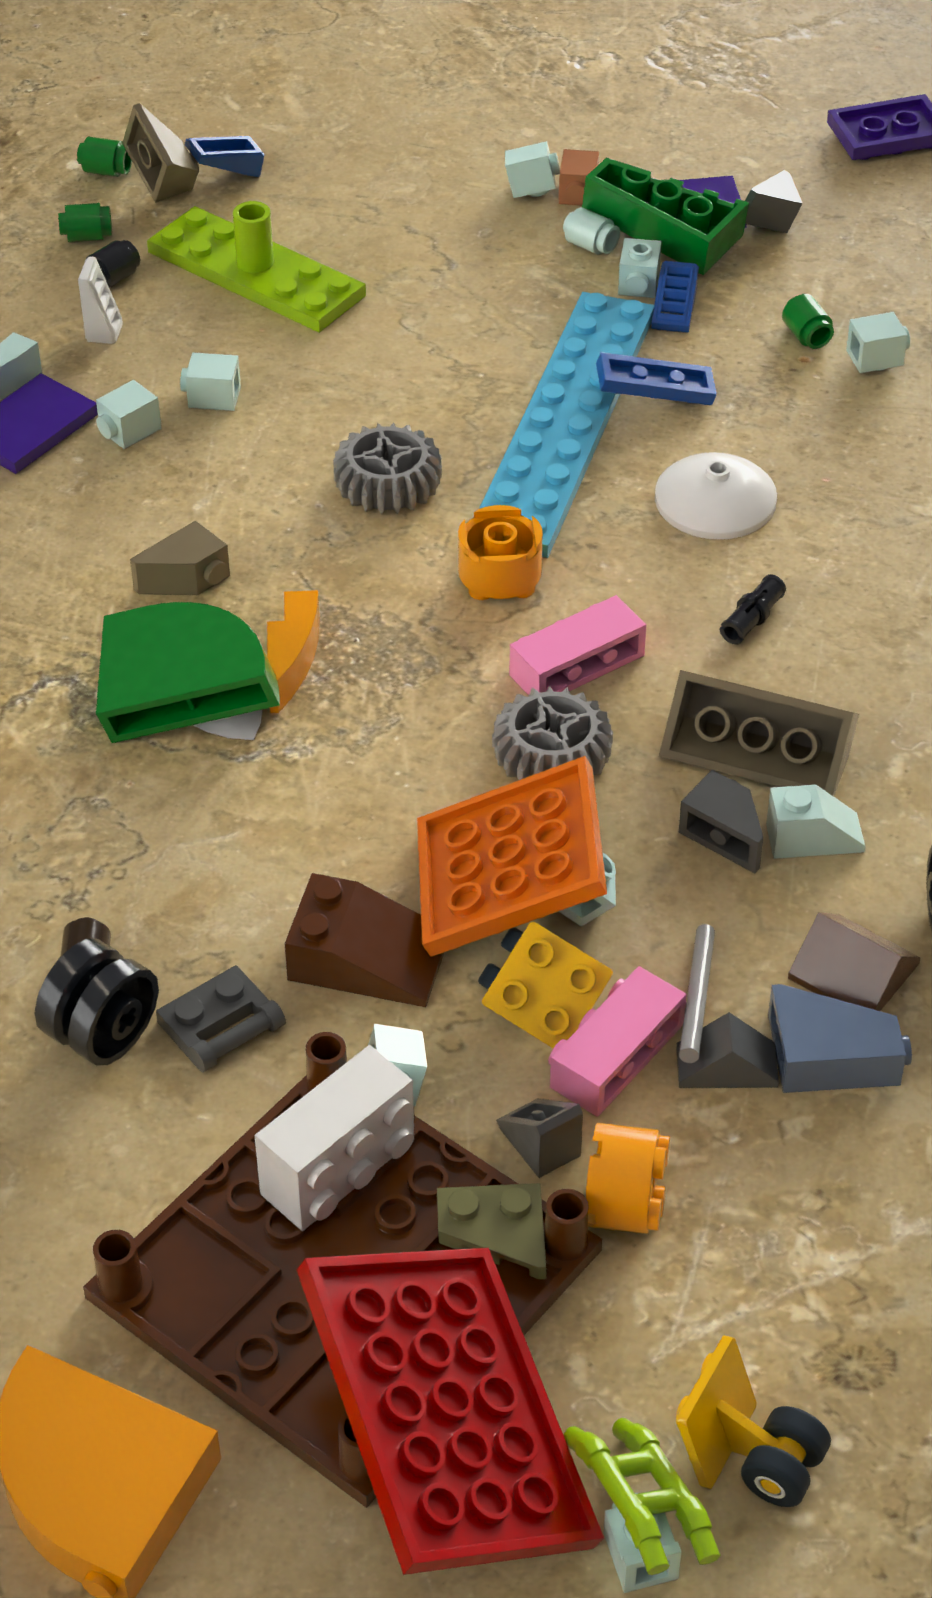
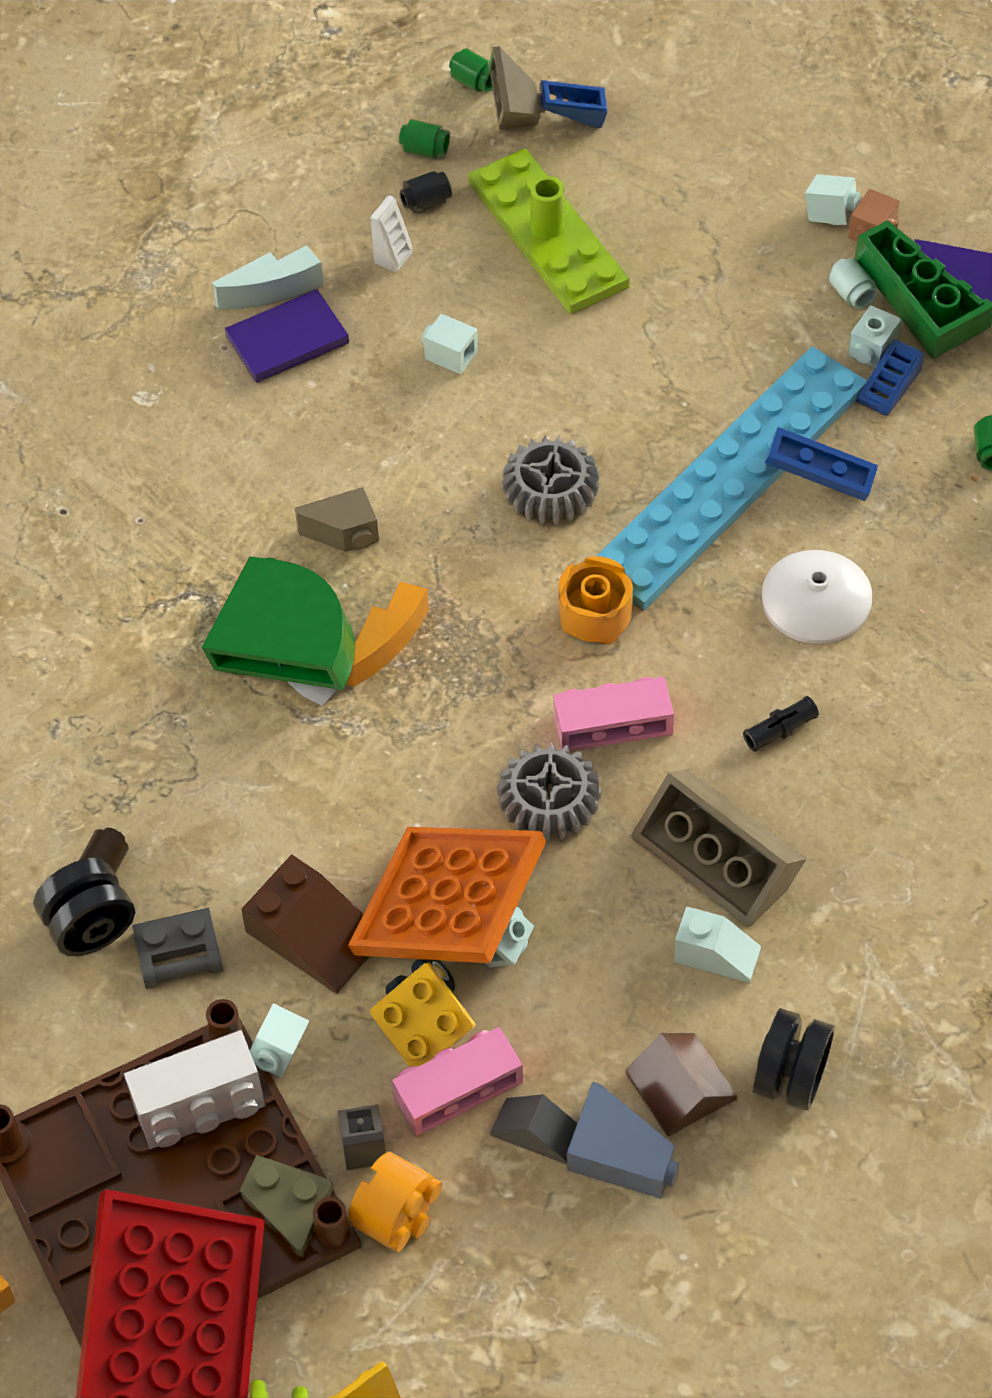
camera: 25 degrees right, 10 degrees up
(128, 414) = (365, 356): light aqua brick -> none
(697, 994) = (538, 1064): light grey bar -> none
(723, 819) = (645, 914): dark grey slope -> none

